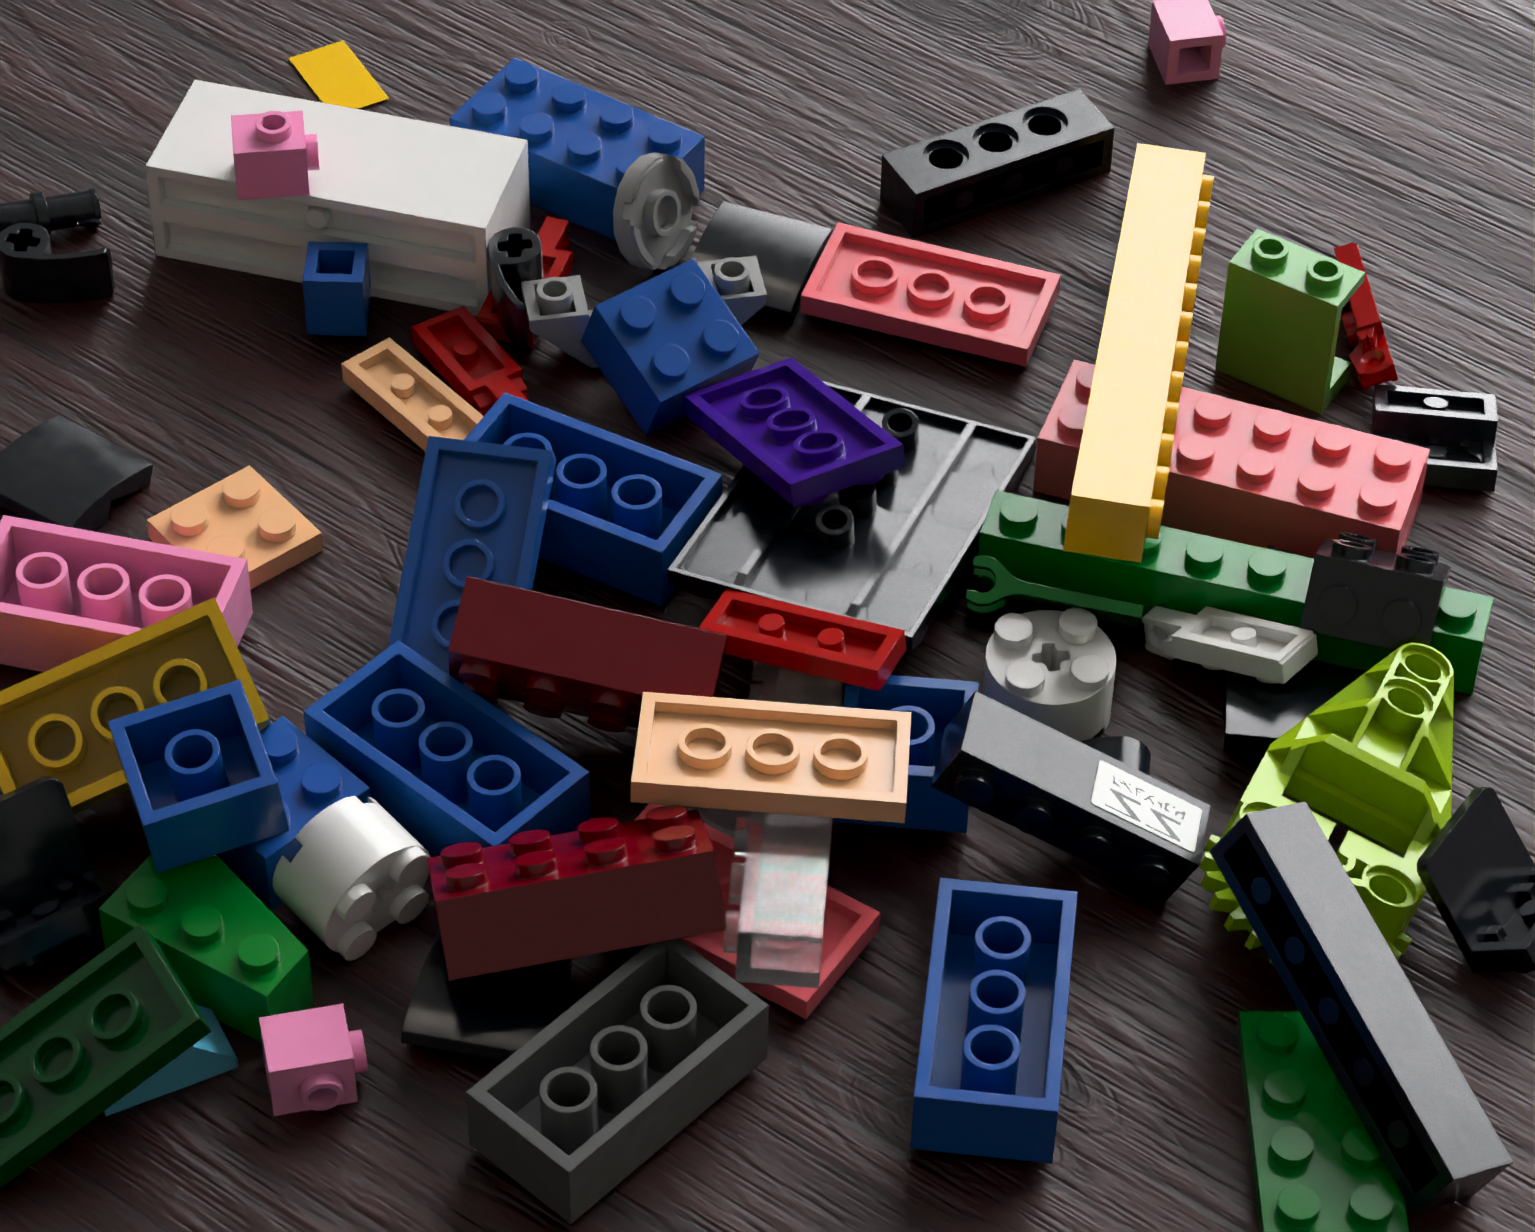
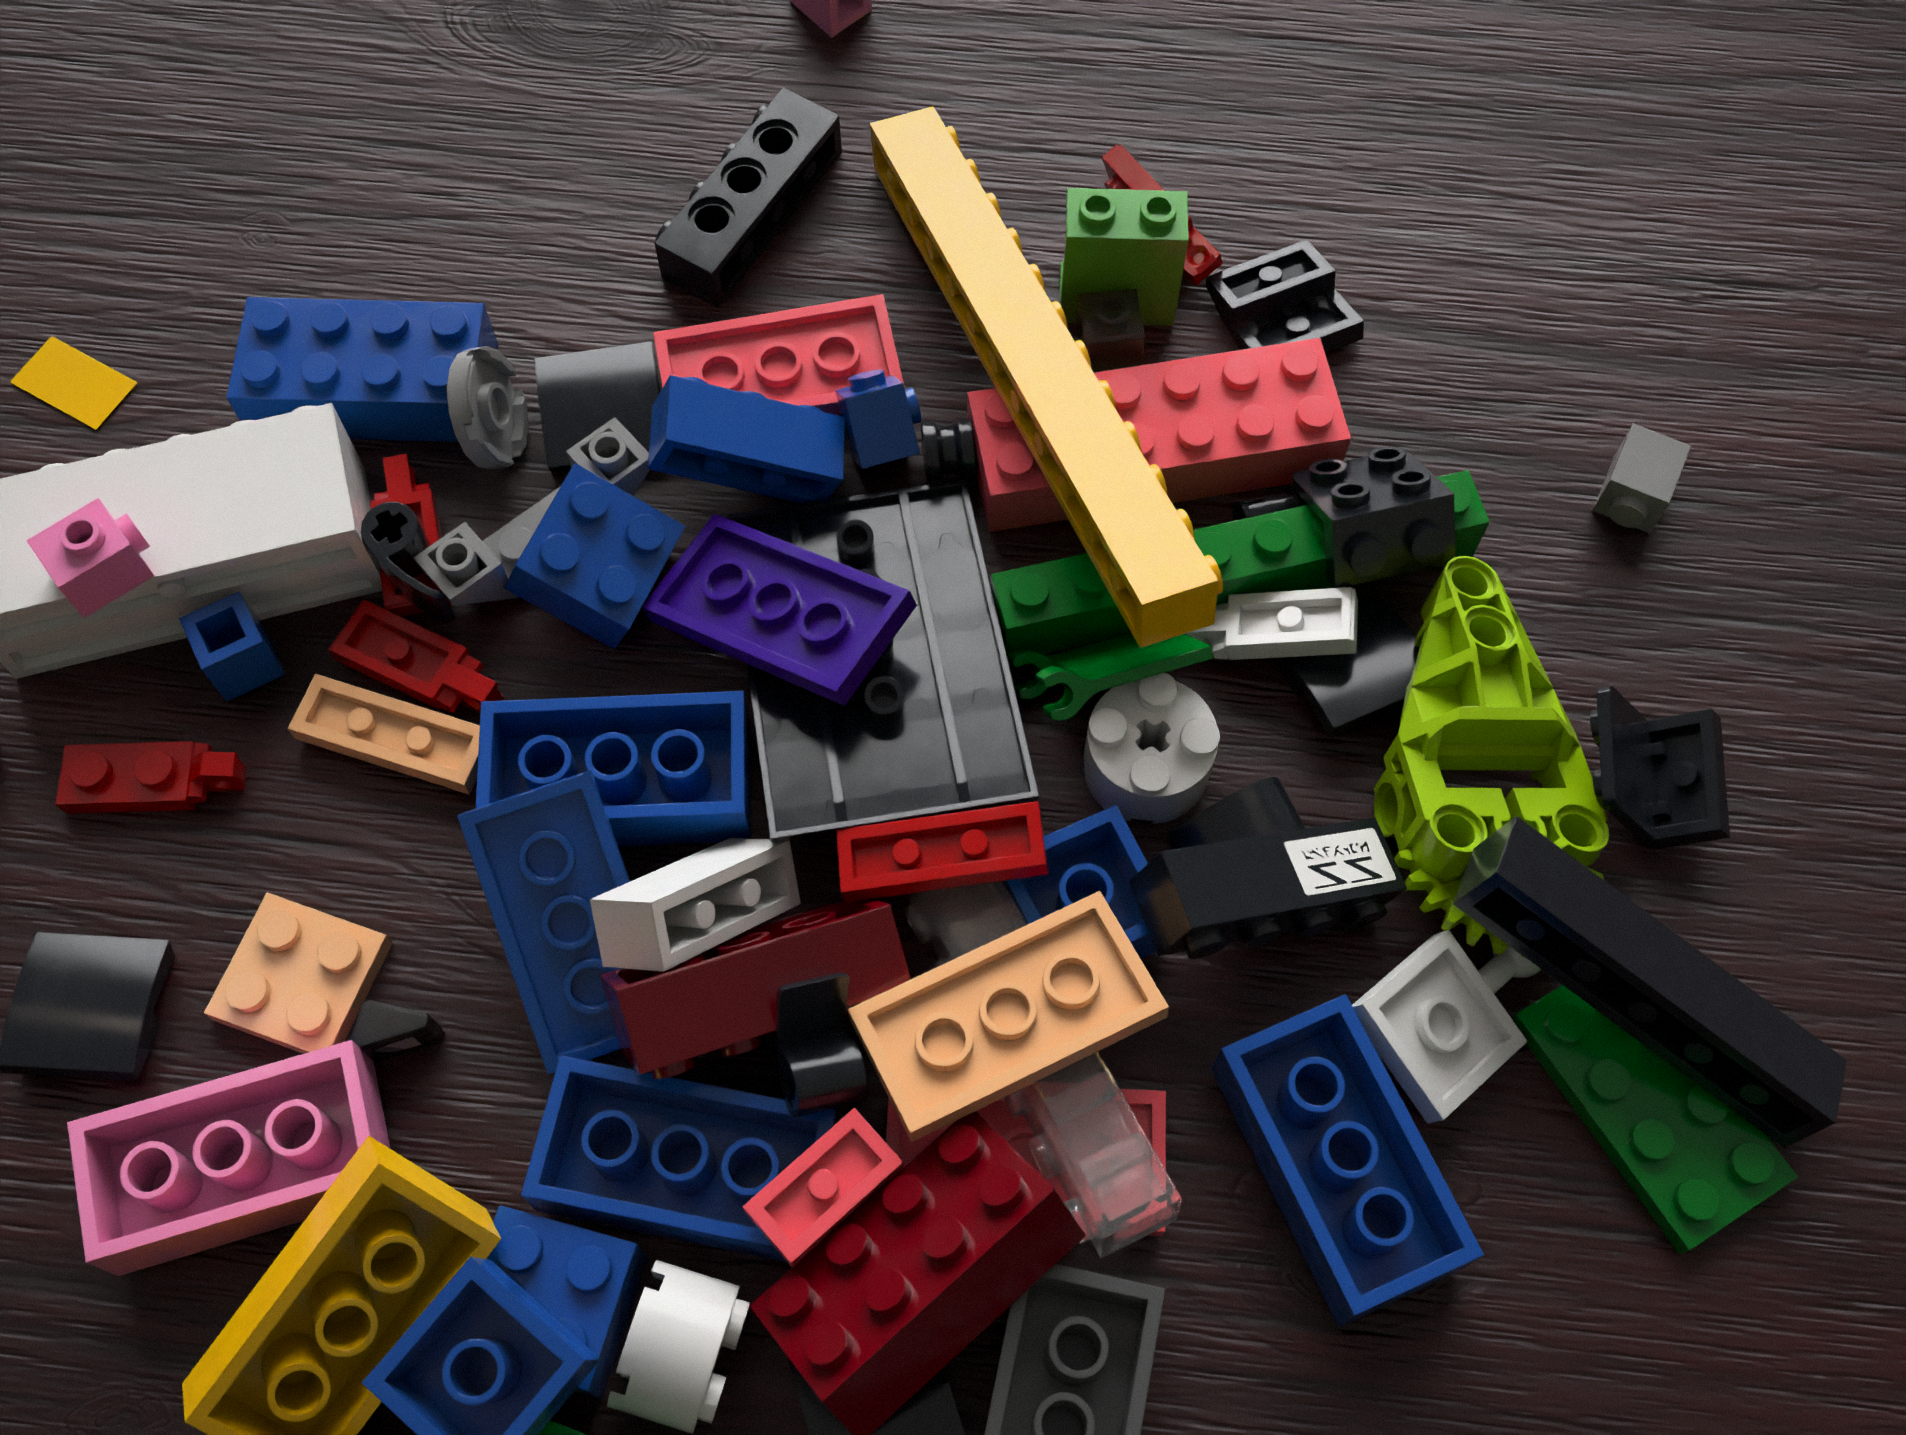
camera: 30 degrees left, 20 degrees up
(210, 356) = (144, 776): none -> red hinge
(283, 594) = (393, 1030): none -> black slope
(538, 798) = (823, 1187): none -> coral plate
(561, 569) = (694, 904): none -> white brick
(603, 702) = (815, 1053): none -> black panel
(855, 318) = (746, 441): none -> blue brick
(986, 353) = (879, 418): none -> blue brick
(1028, 404) = (948, 449): none -> black wheel
(1161, 974) = (1442, 1022): none -> white plate
(1246, 370) = (1110, 328): none -> clear smoke brick

